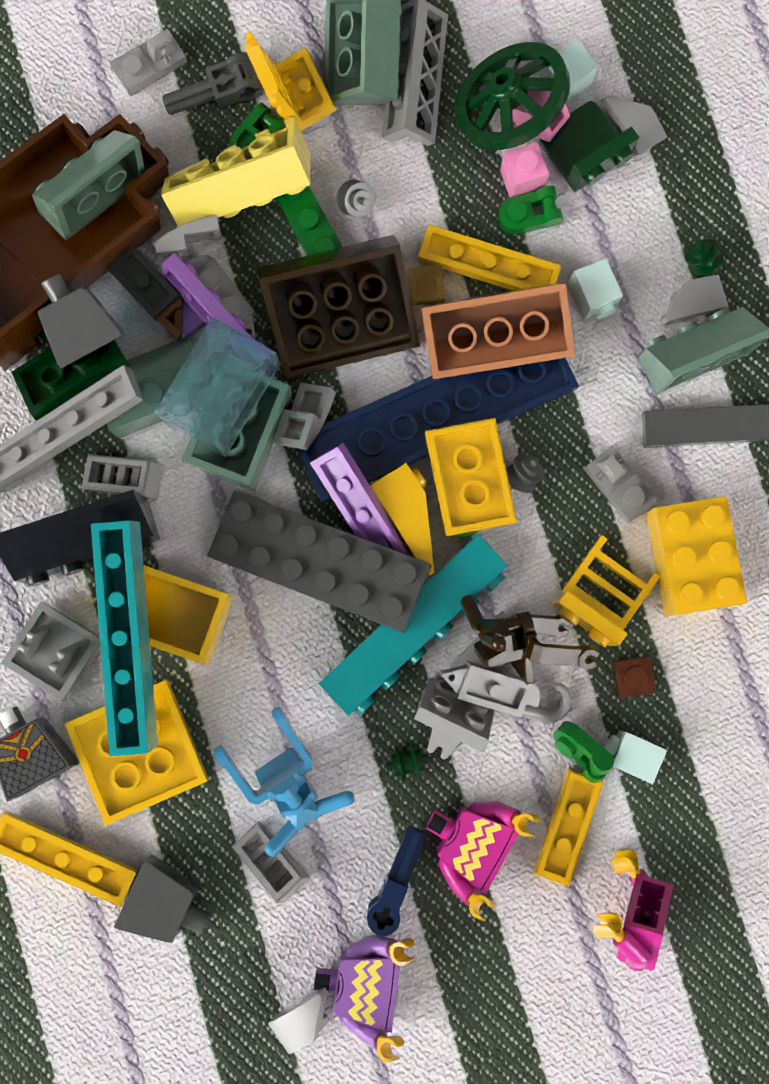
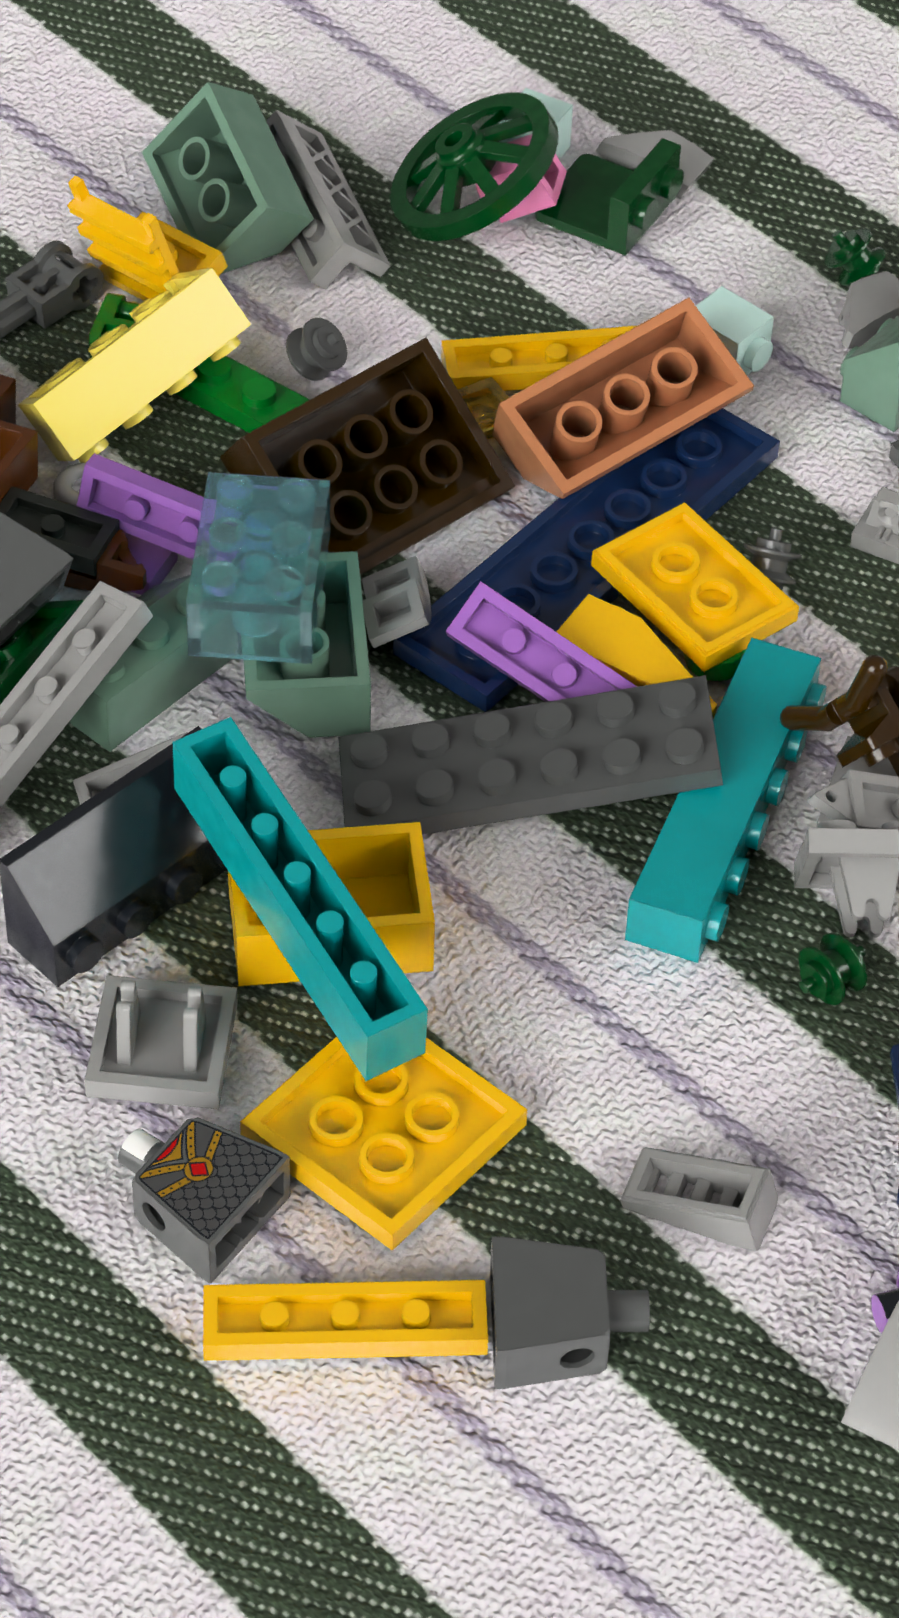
camera: 25 degrees left, 35 degrees down
(194, 231) = (111, 437): light grey slope -> none
(286, 785) = (665, 1058): dark azure piece -> none
(517, 212) = (564, 302): green plate -> none
(524, 170) = (541, 246): bright pink brick -> none

